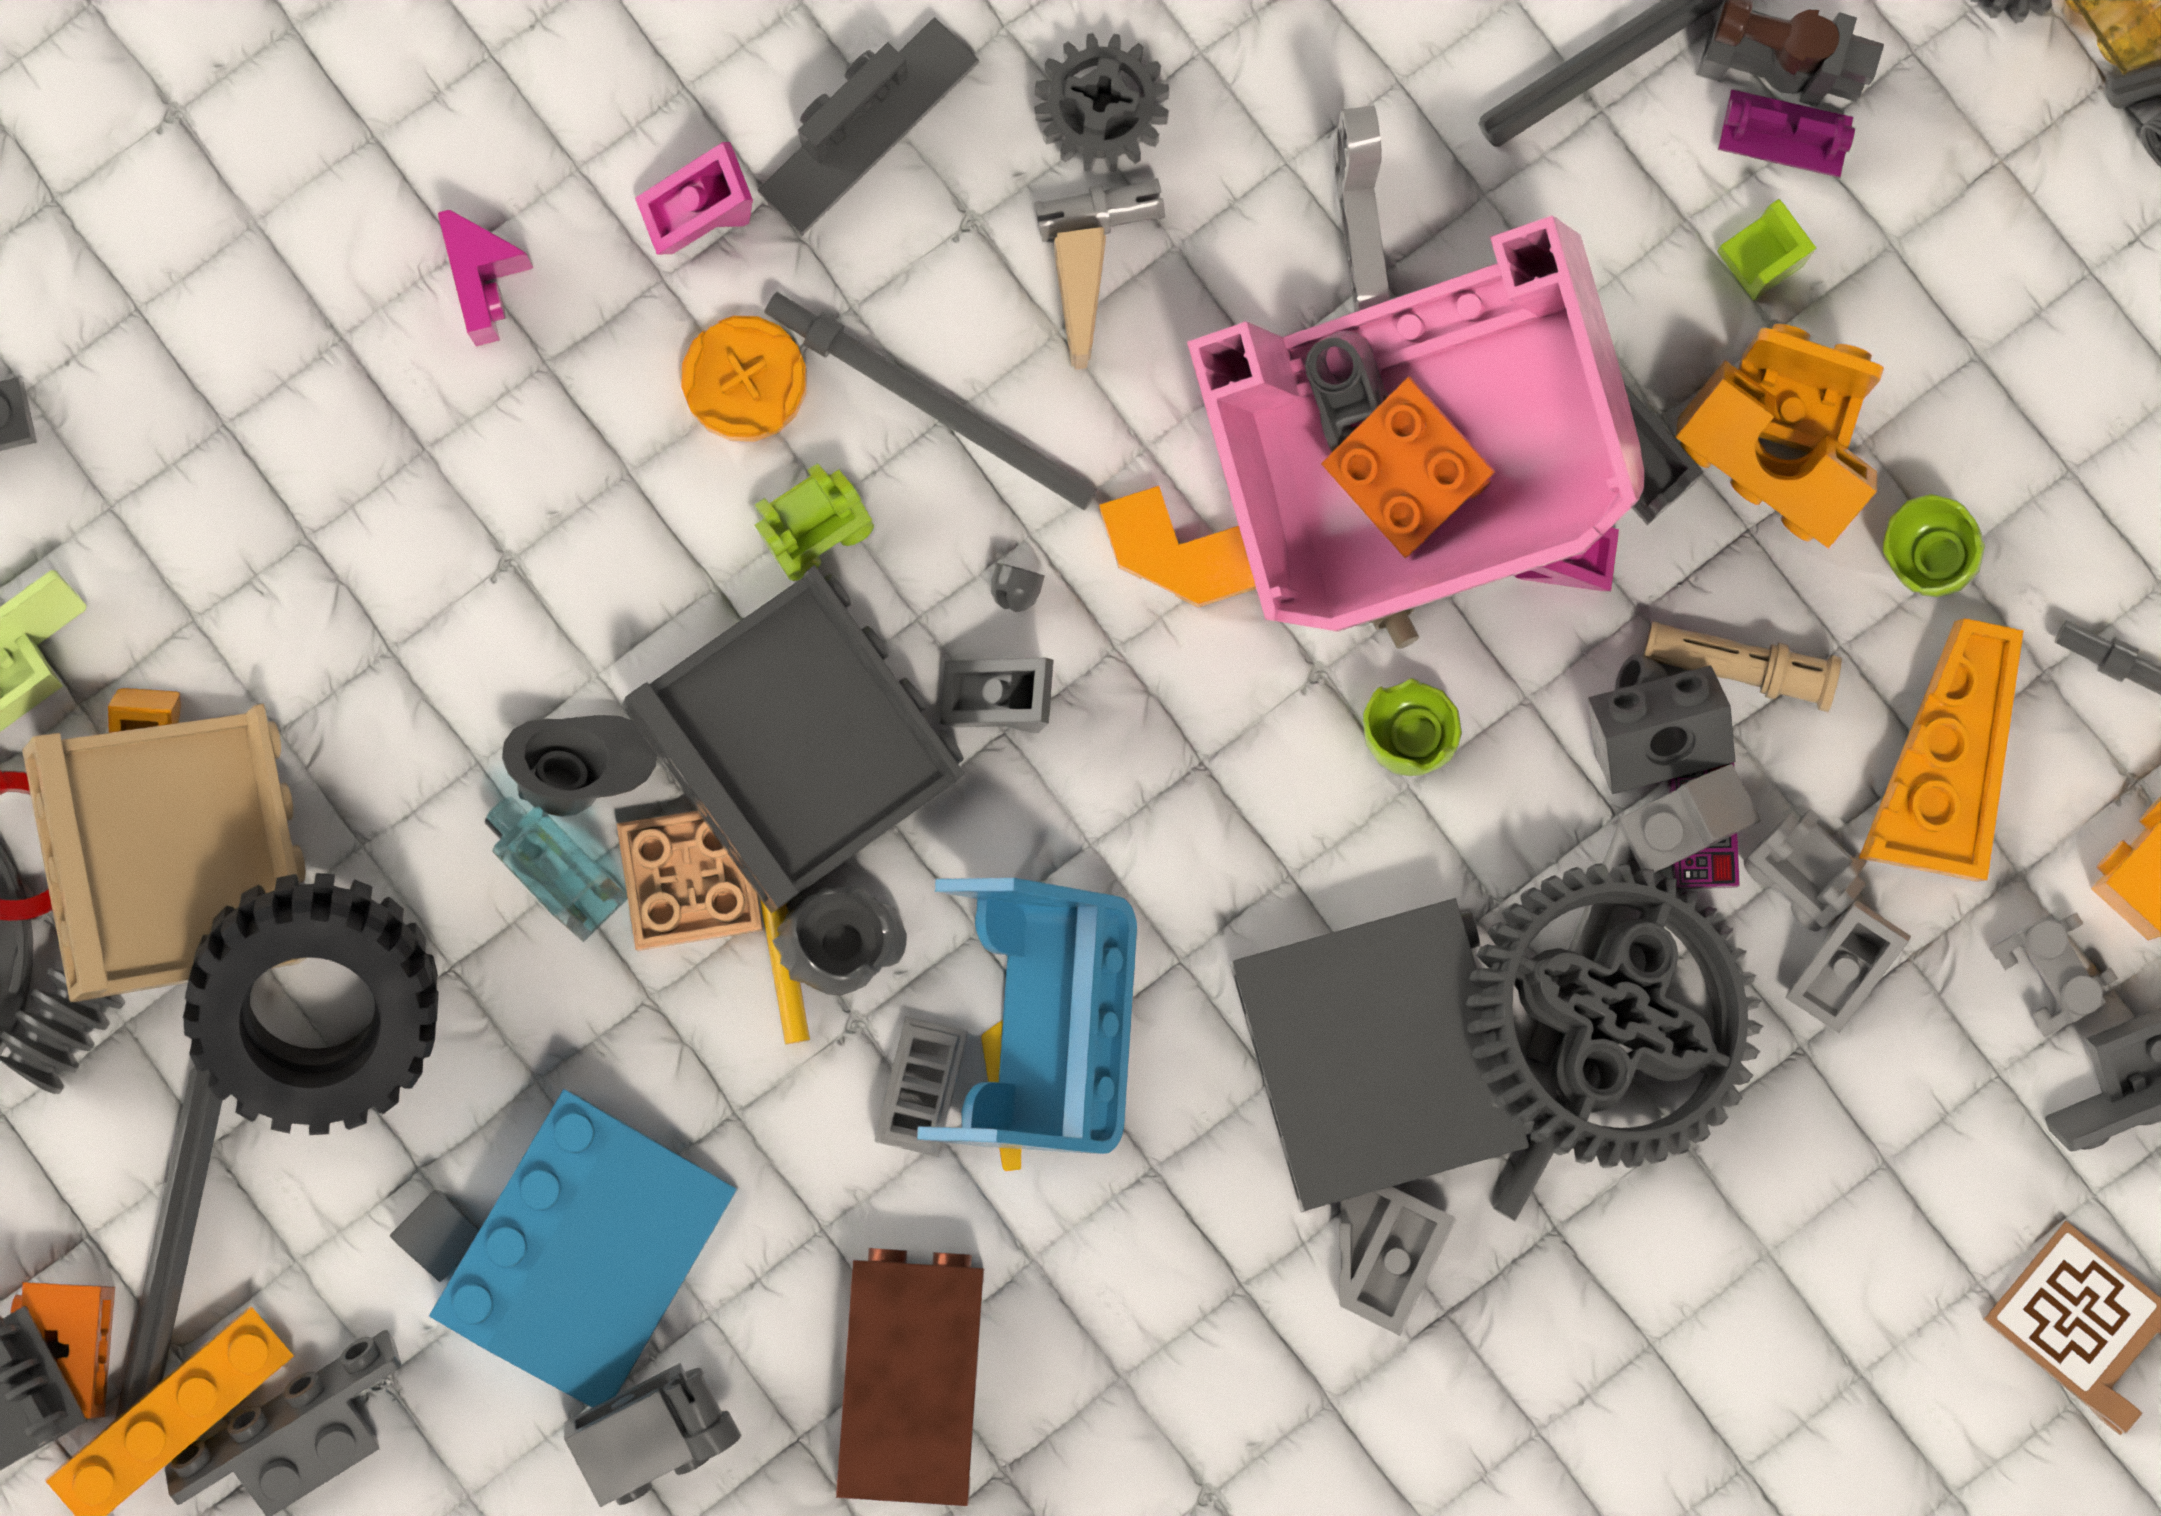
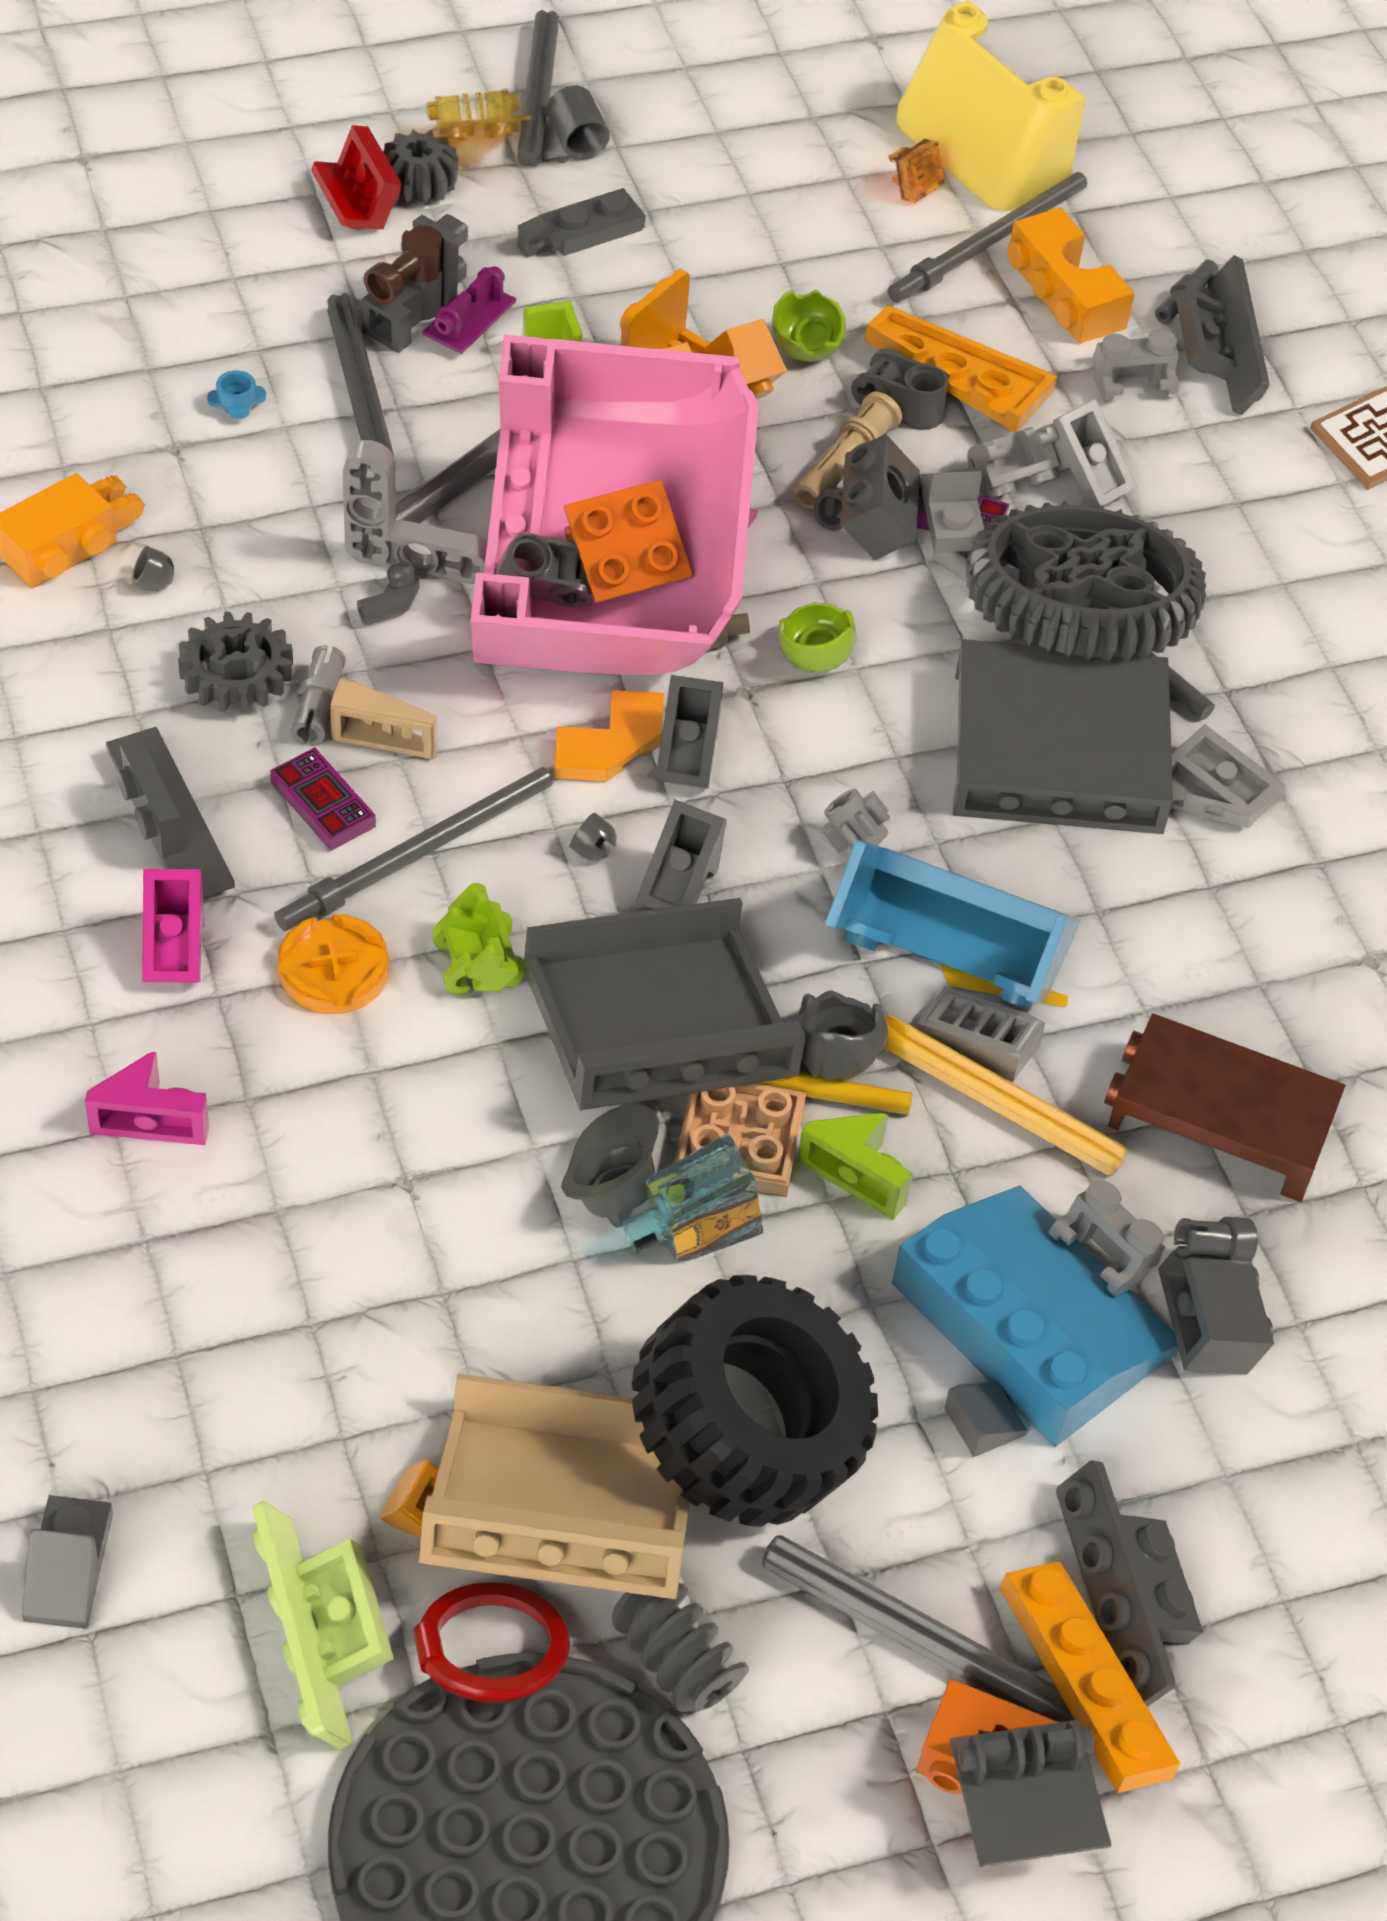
camera: 75 degrees left, 30 degrees down
(687, 1306) = (1128, 1241): none -> light grey piece
(689, 993) = (847, 1156): none -> lime slope
(843, 1133) = (1004, 1097): none -> yellow axle
(958, 275) = (323, 798): none -> tile
(1144, 863) = (855, 819): none -> light grey gear
(1189, 637) = (689, 731): none -> dark grey slope
(1286, 234) = (396, 598): none -> dark grey arm
(1489, 219) = (450, 481): none -> dark grey axle
(1880, 682) = (913, 385): none -> dark grey piece
(2017, 204) = (582, 224): none -> dark grey hinge

